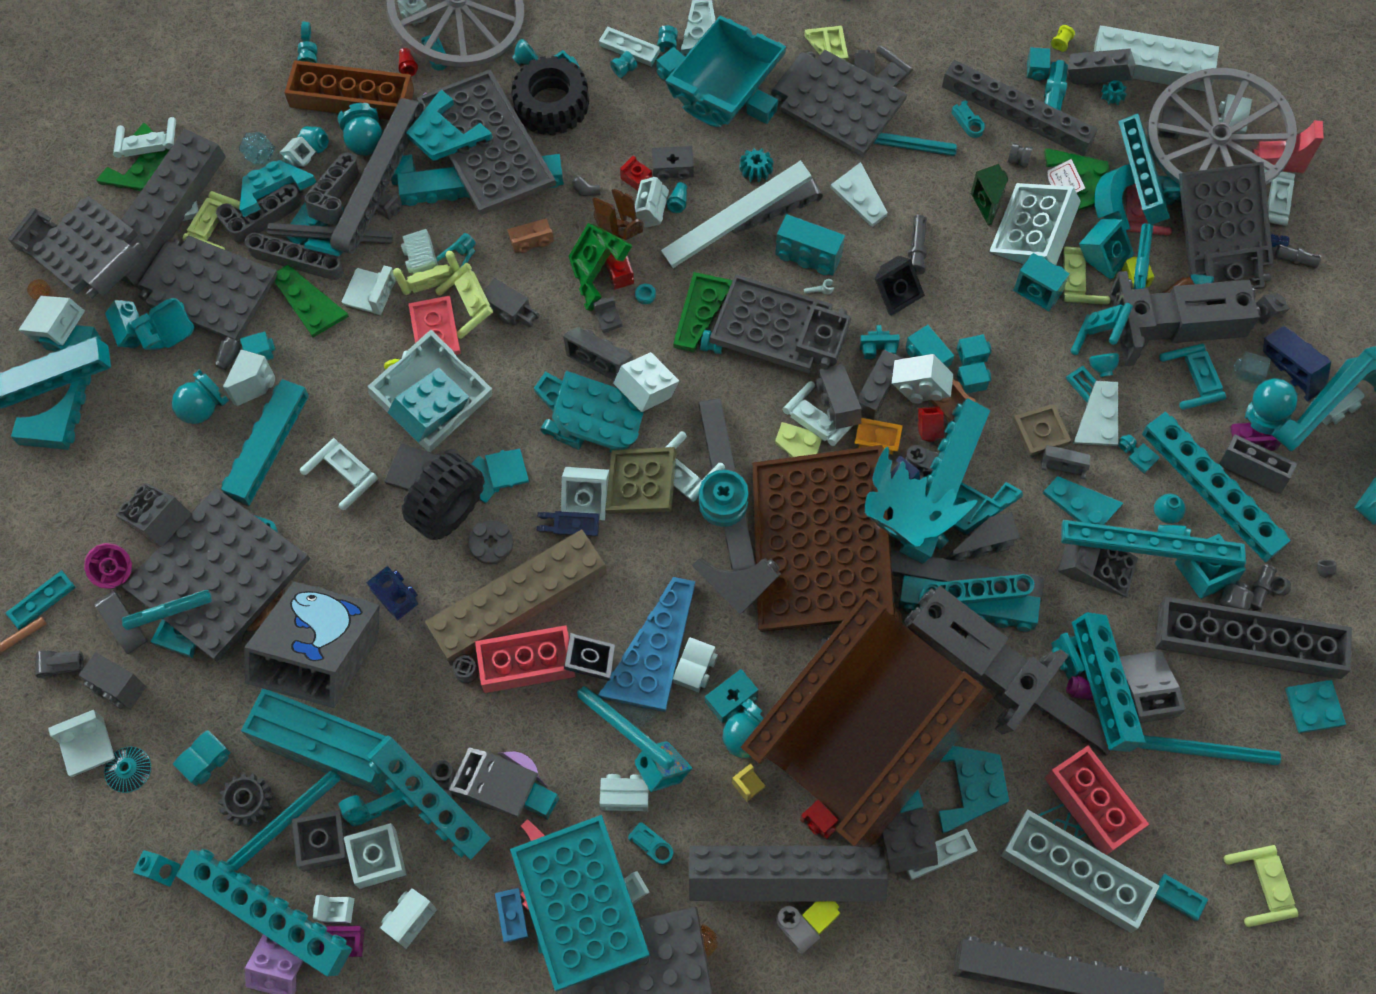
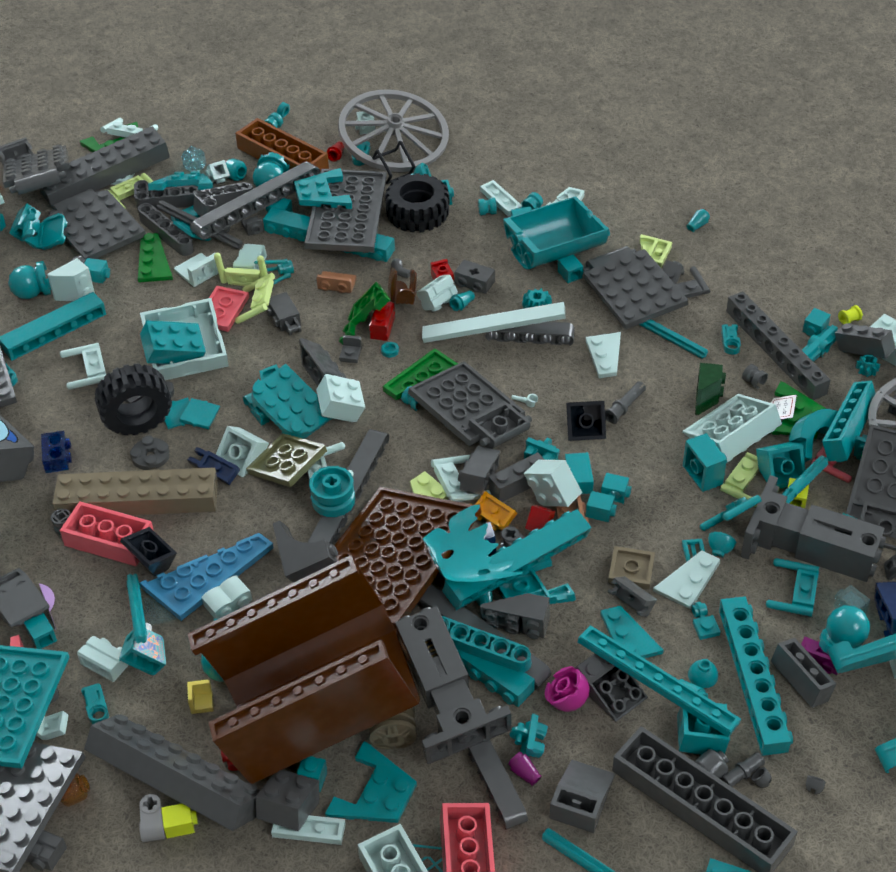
camera: 30 degrees right, 20 degrees down
(469, 49) = (375, 156): none -> black piece
(809, 245) = (534, 364): teal brick -> none
(1074, 592) = (567, 690): none -> dark pink cylinder
(1108, 682) = (544, 769): teal brick -> none

